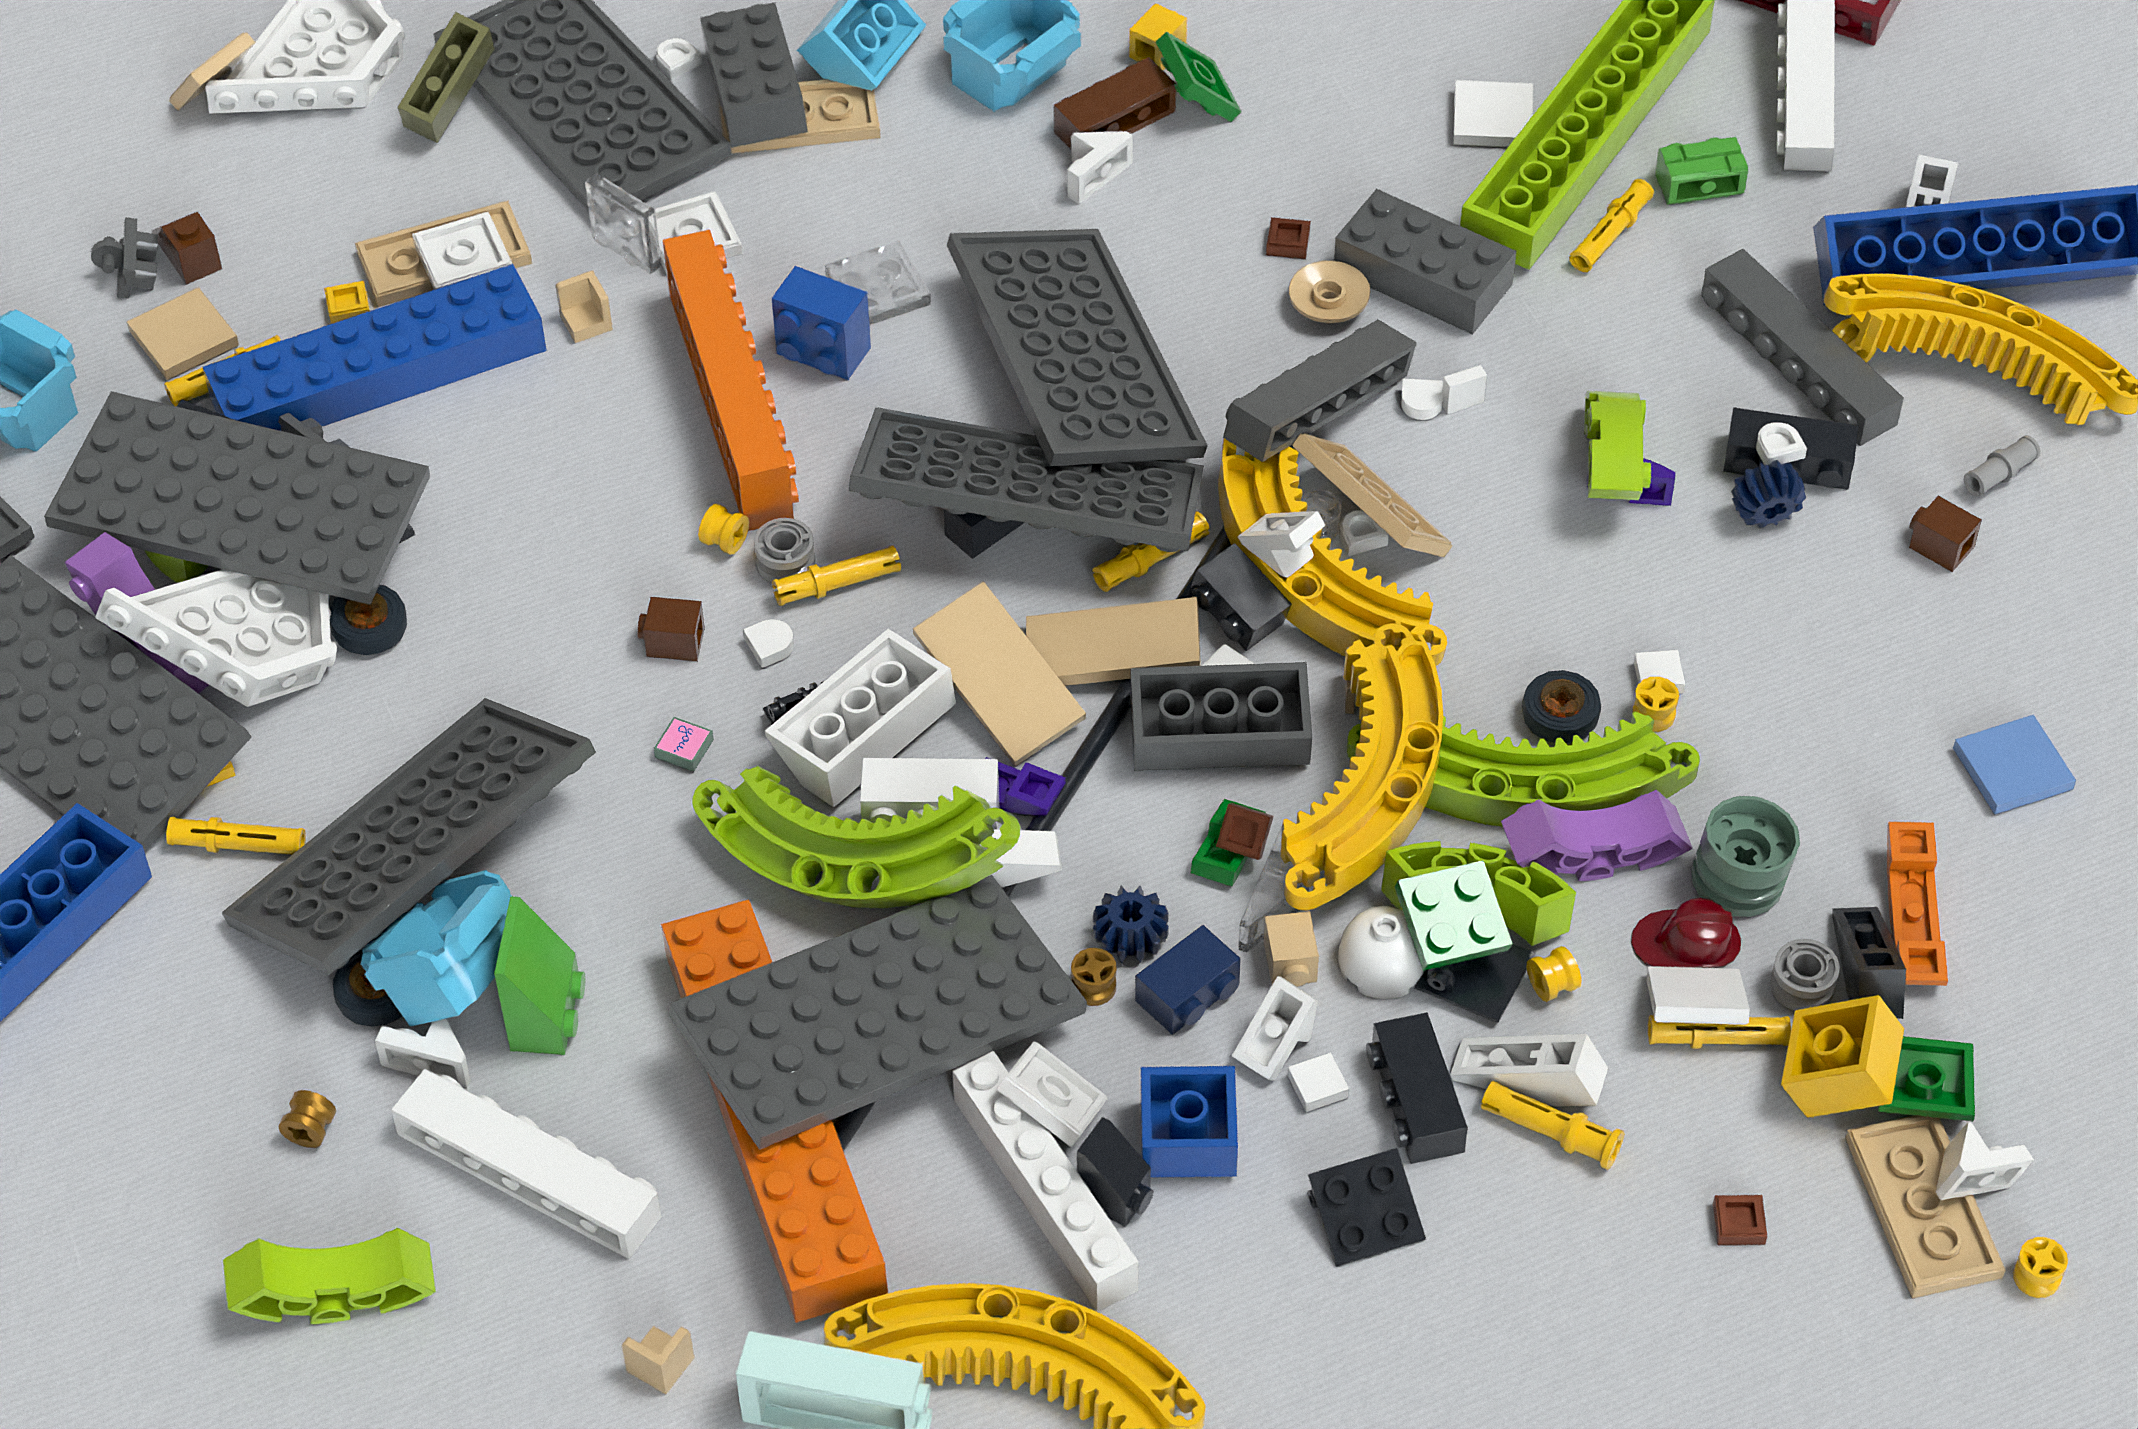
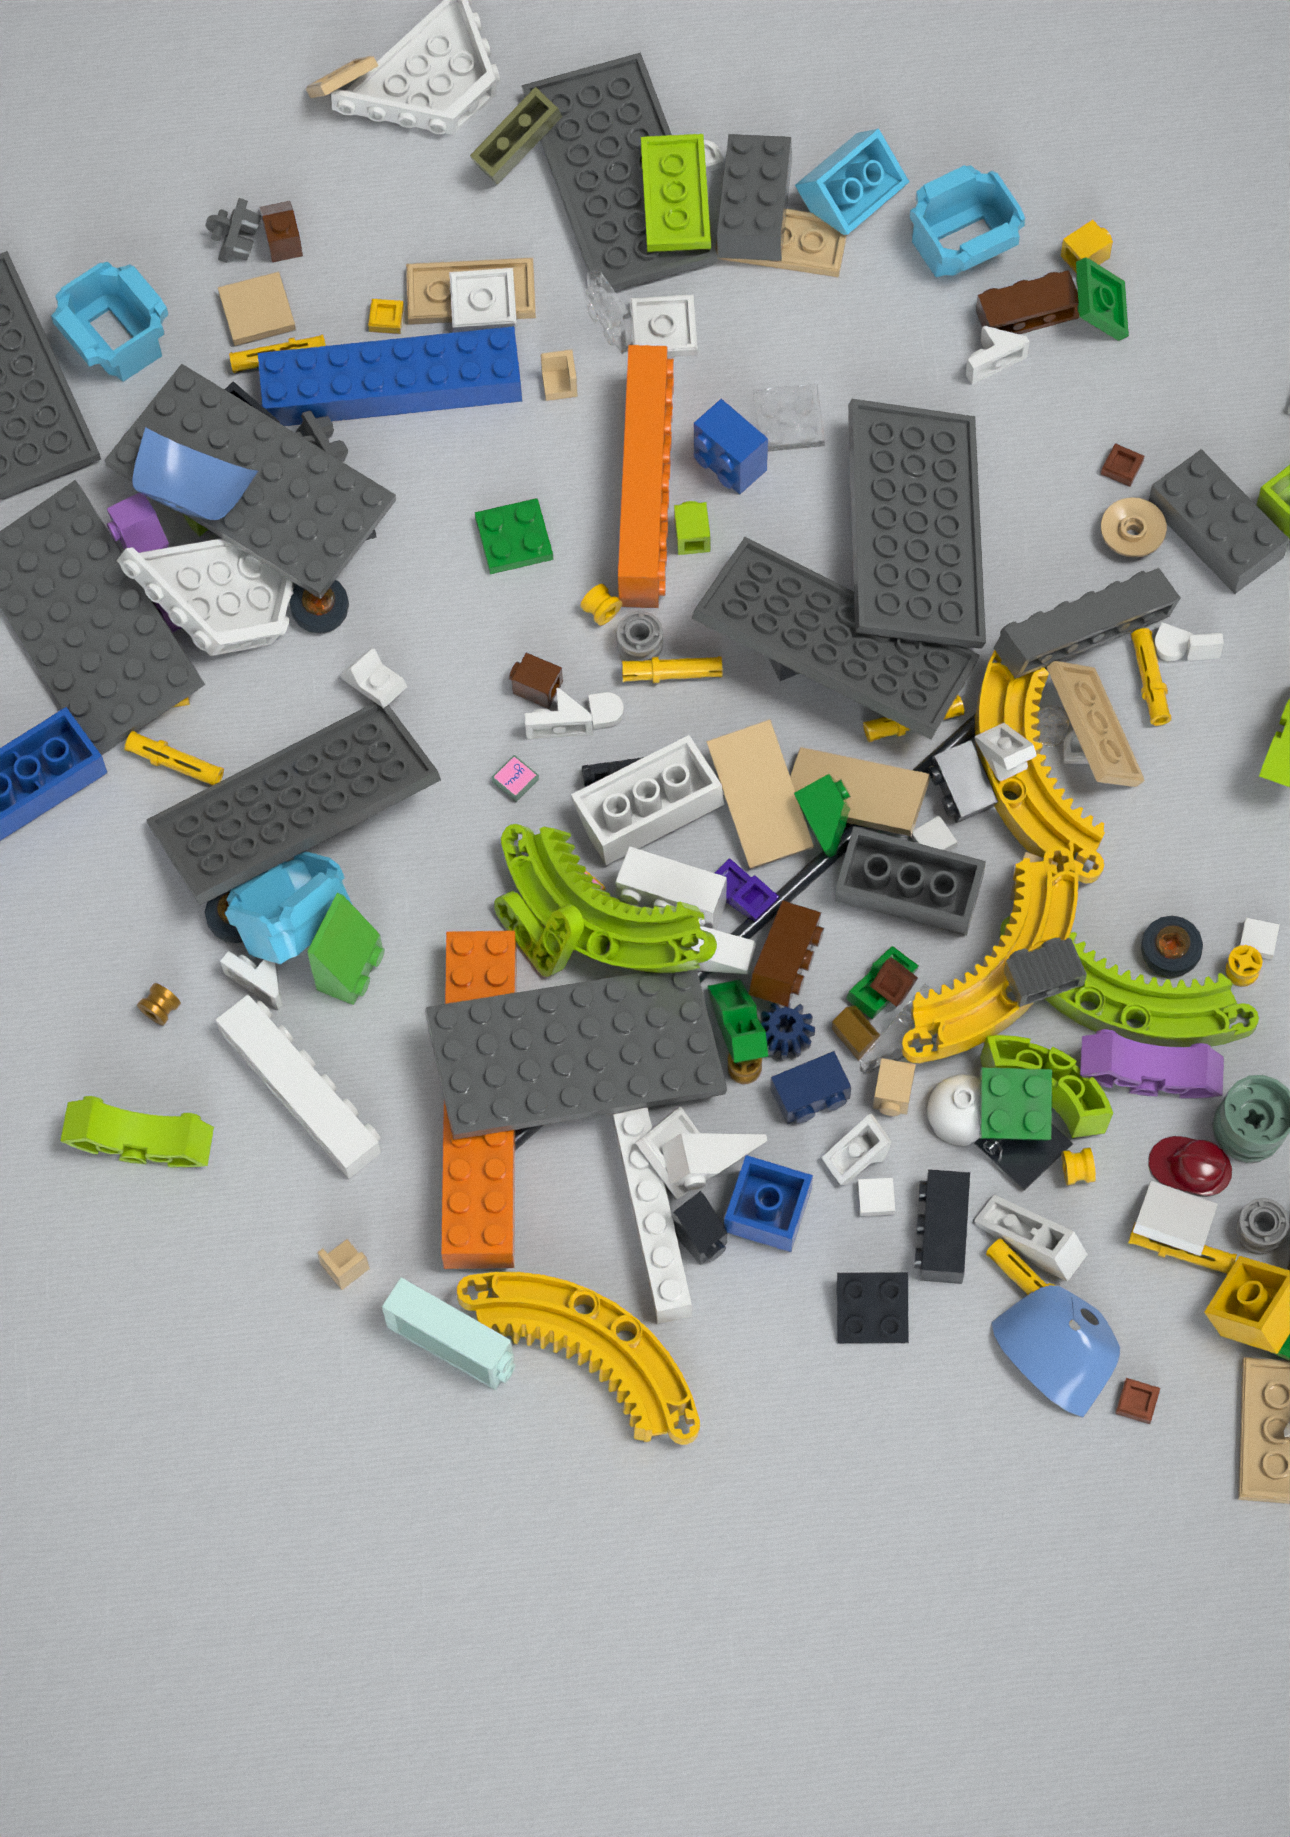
camera: 20 degrees right, 15 degrees up
(160, 506) = (187, 478): none -> medium blue piece
(465, 679) = (374, 679): none -> white slope
(587, 488) = (514, 536): none -> green plate
(658, 90) = (675, 192): none -> lime plate
(724, 663) = (568, 721): none -> white slope
(737, 883) = (545, 947): none -> lime beam
(806, 422) = (692, 528): none -> lime brick
(1071, 926) = (738, 1021): none -> green slope
(1086, 664) = (825, 810): none -> green slope
(1089, 1081) = (700, 1156): none -> white slope
(1101, 835) = (786, 954): none -> reddish brown brick
(1216, 904) = (855, 1031): none -> pearl gold piece
(1432, 749) = (1044, 971): none -> dark grey brick
(1436, 465) = (1153, 688): none -> yellow pin
(1621, 1190) = (1059, 1361): none -> medium blue piece

